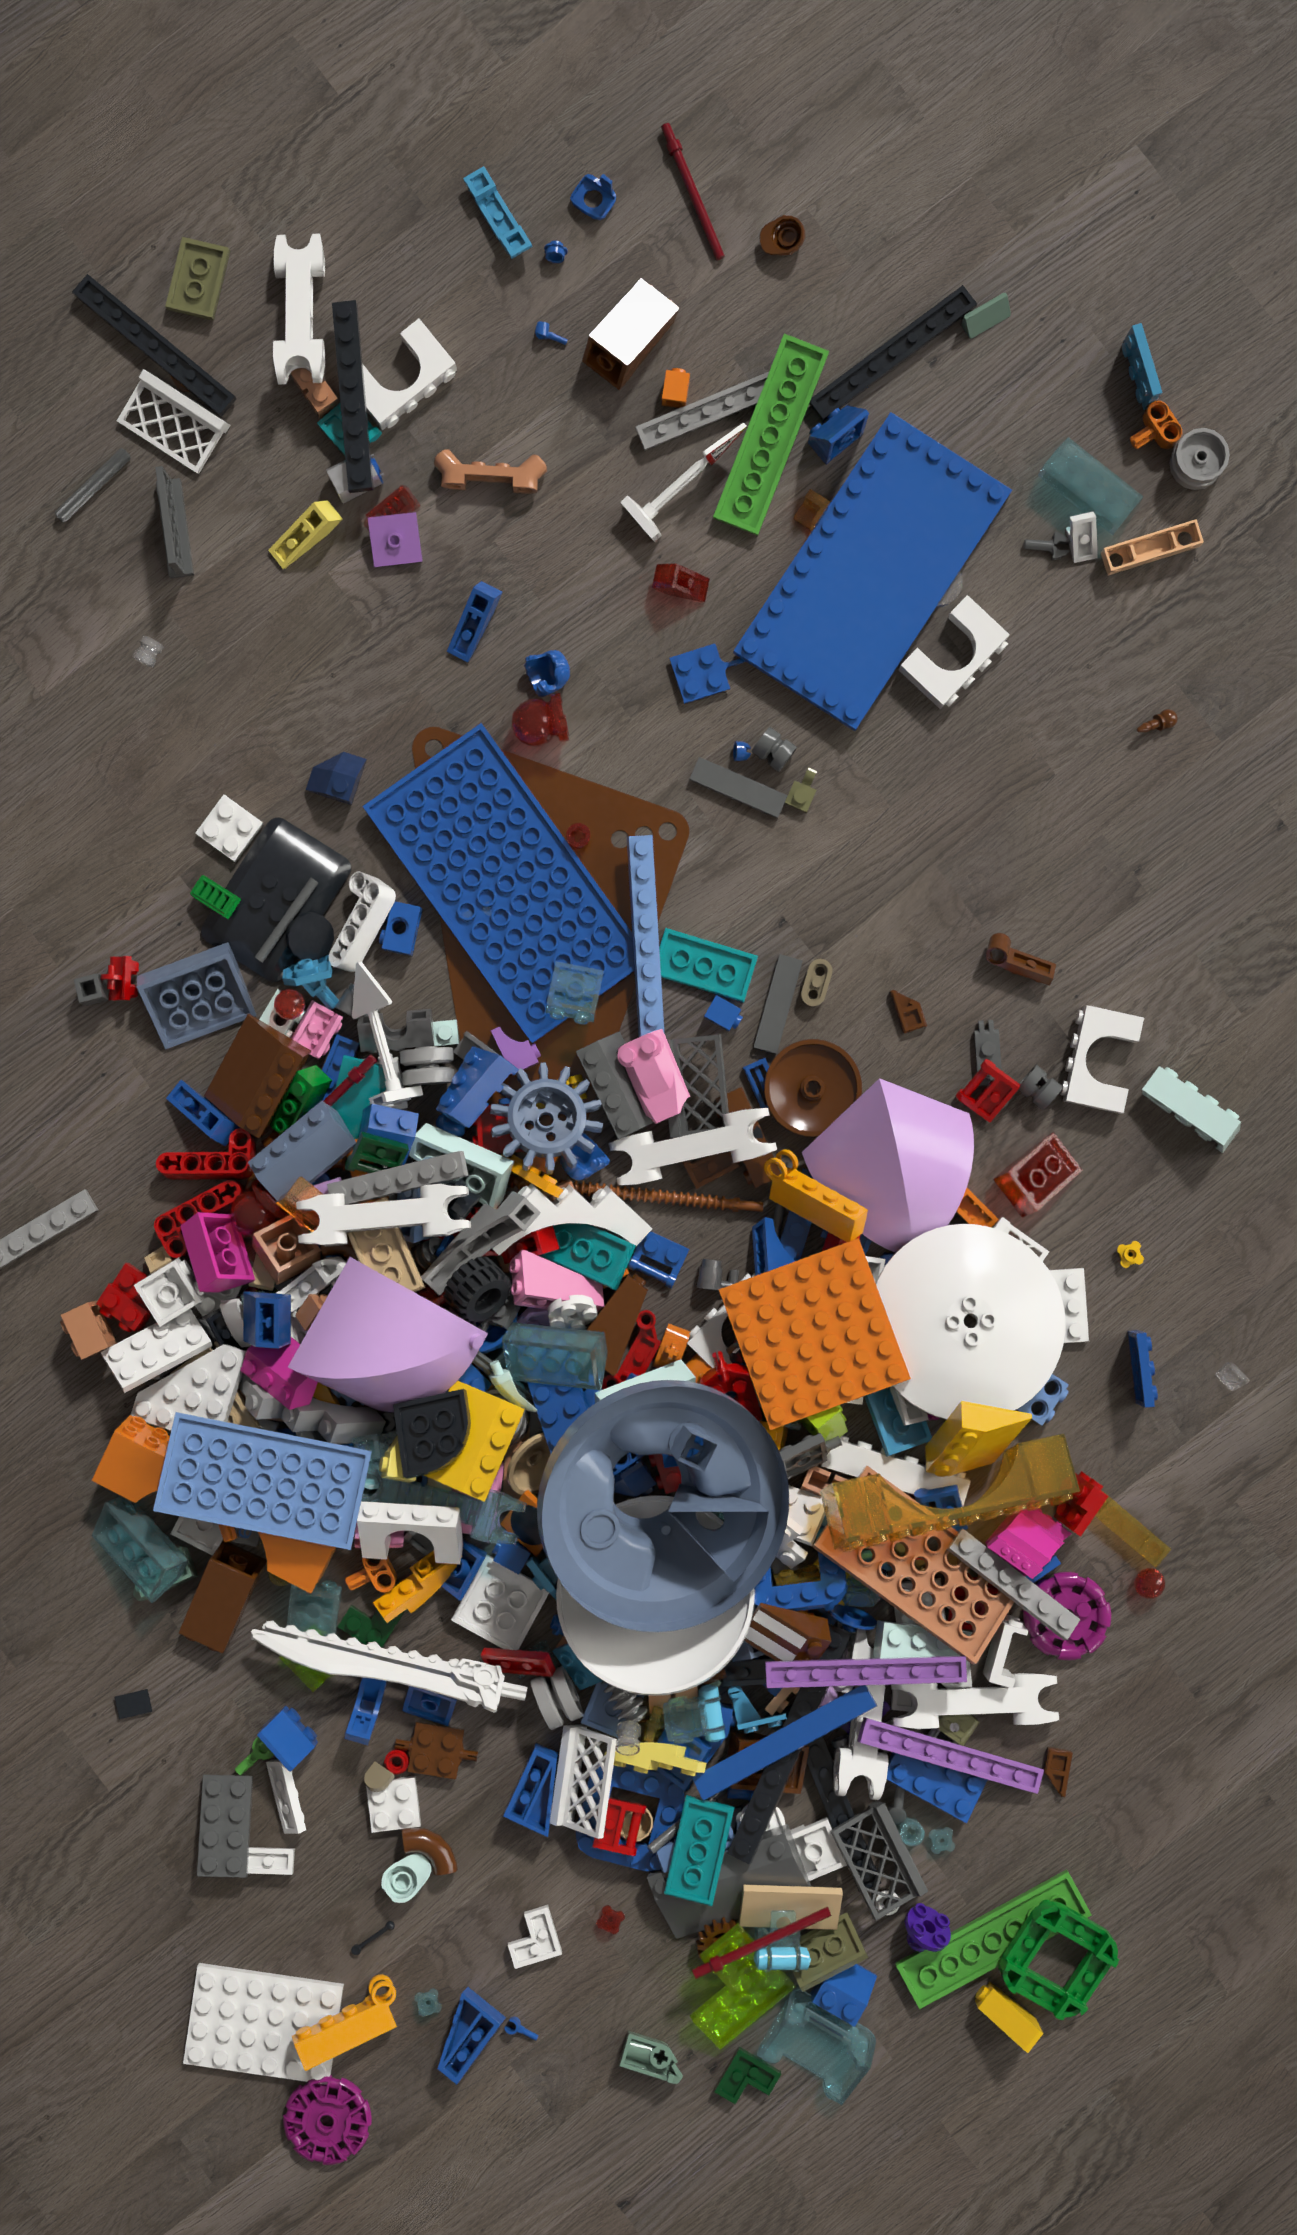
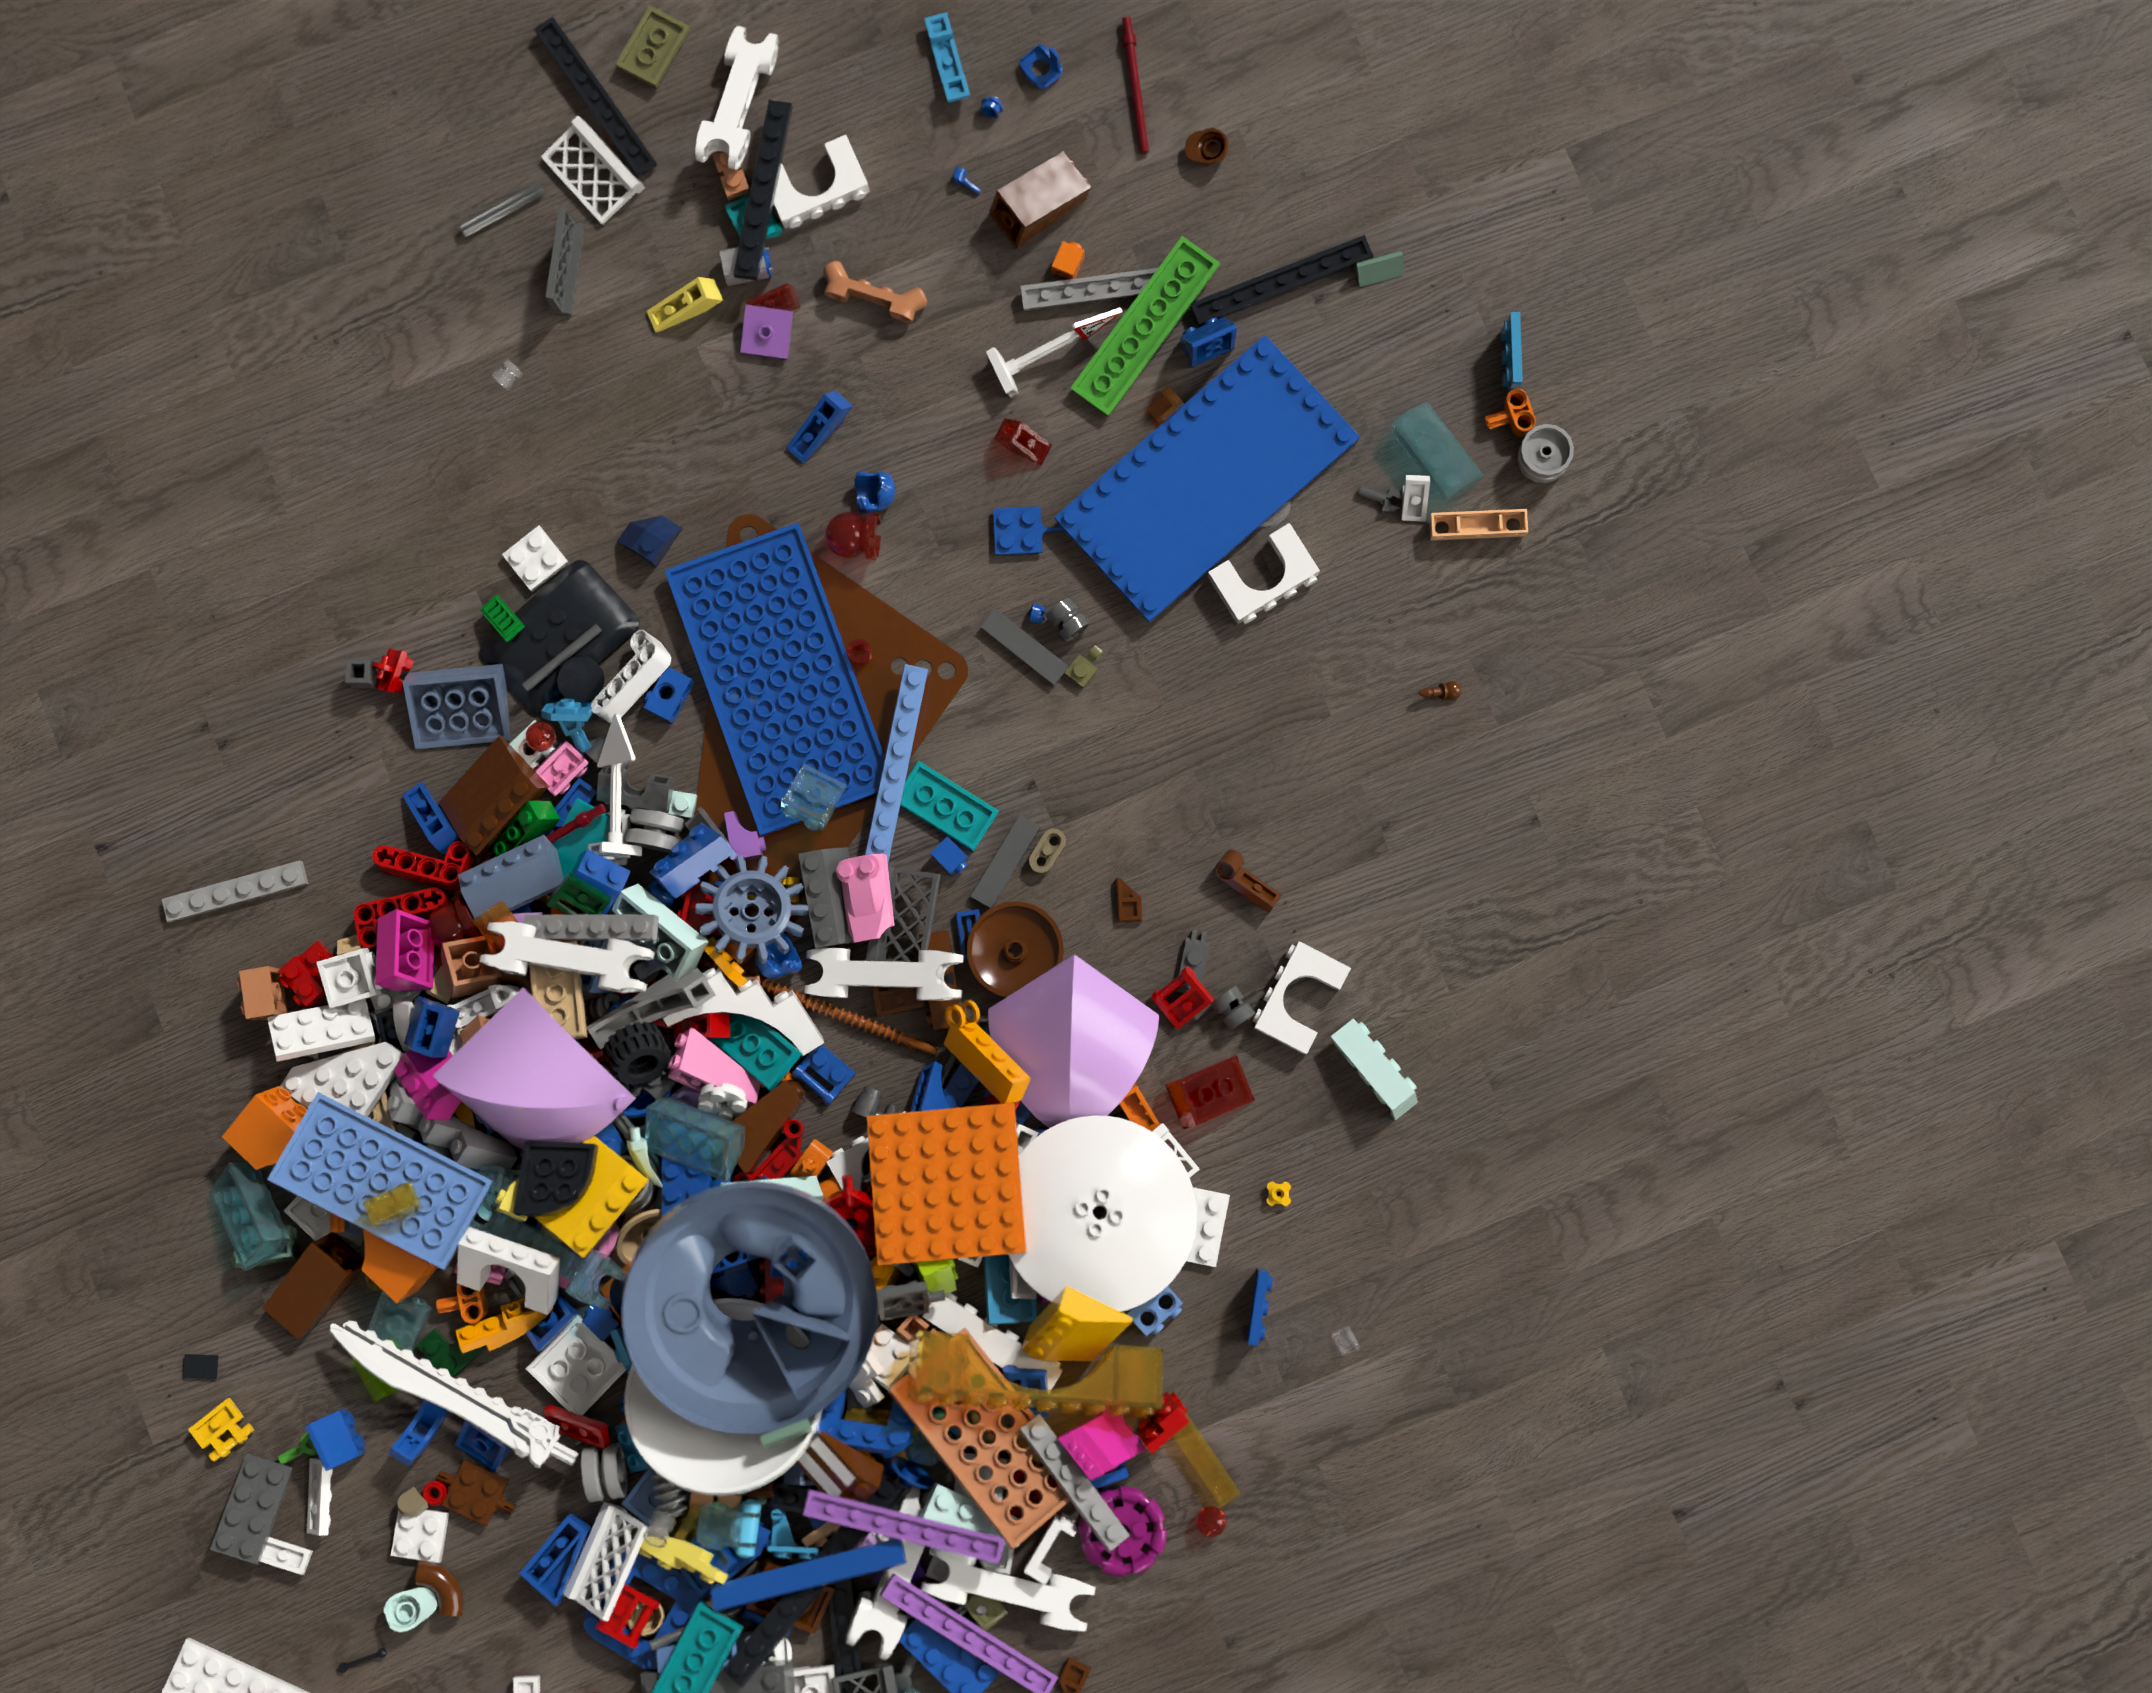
camera: 25 degrees right, 5 degrees down
(166, 1753) = (218, 1422): none -> yellow plate
(284, 1501) = (393, 1204): none -> clear yellow brick
(729, 1615) = (786, 1433): none -> sand green tile

